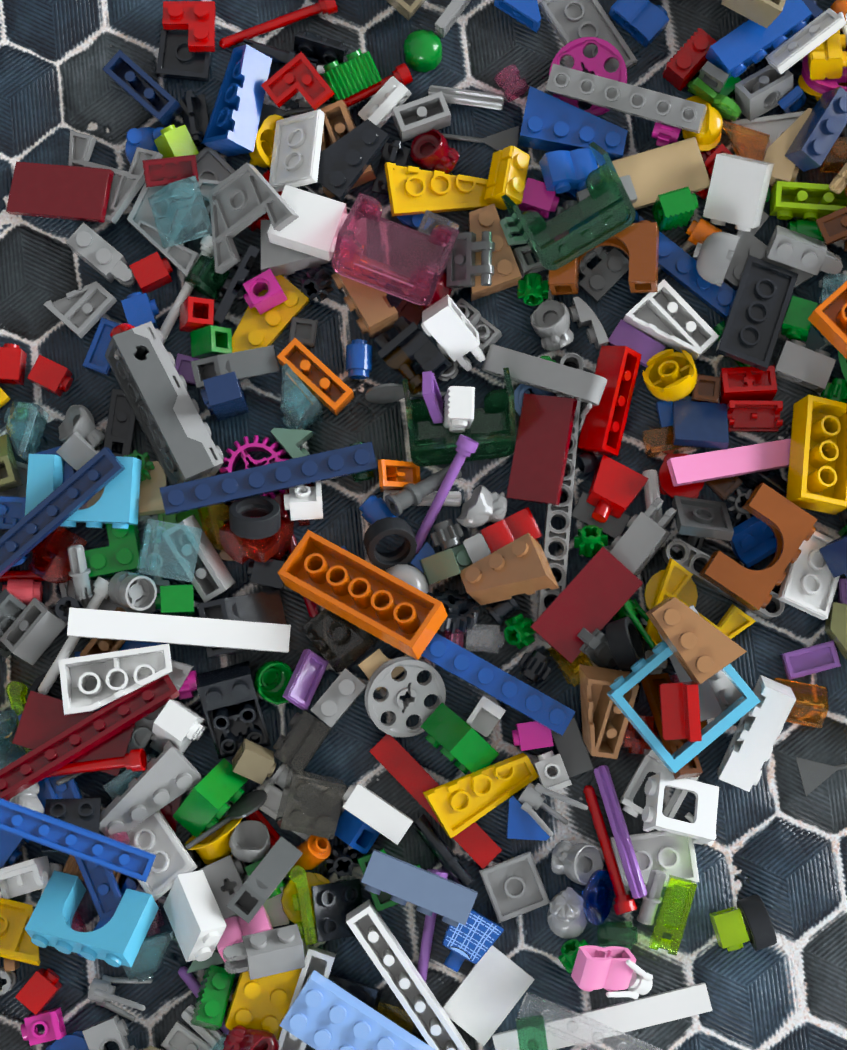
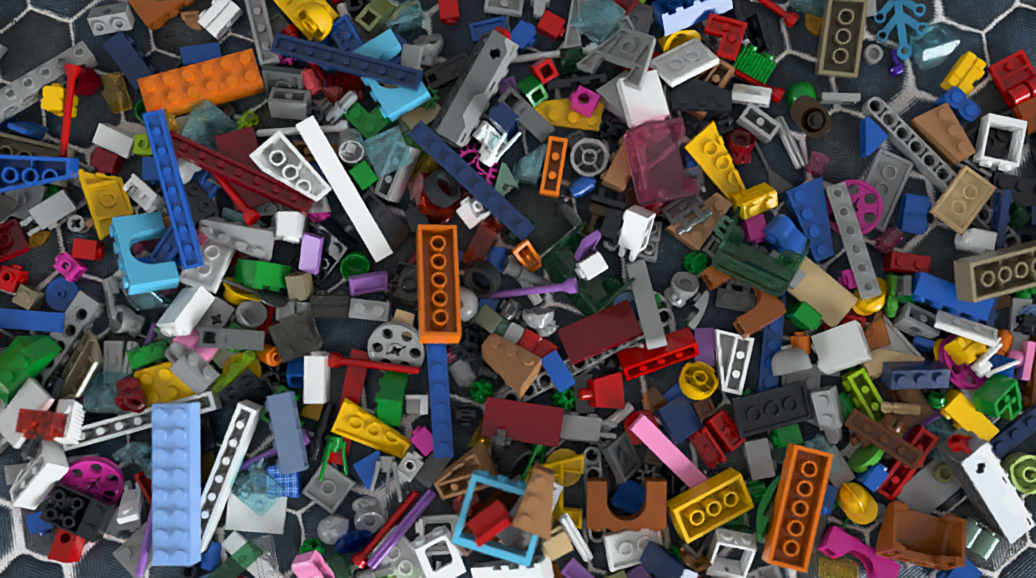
camera: 55 degrees right, 5 degrees up
(157, 999) = (126, 321): none -> light grey hair
(226, 722) = (311, 253): none -> tile
(233, 426) = (480, 132): none -> white tile
(255, 436) = (490, 155): none -> white plant
(332, 328) = (589, 157): none -> light grey cylinder
(346, 515) = (482, 241): none -> clear red bracket
(371, 776) = (336, 360): none -> red piece
(411, 845) = (312, 411): none -> pearl gold tile
(454, 54) = (810, 117): none -> dark brown piece
(461, 970) = (258, 488): none -> clear light blue bracket
(467, 845) = (333, 444): none -> green plant
(555, 525) = (557, 371): none -> blue tile
(650, 61) = (888, 239): none -> clear pink brick
(756, 659) = (559, 544): none -> tan arch
(761, 633) = (575, 537): none -> white axle

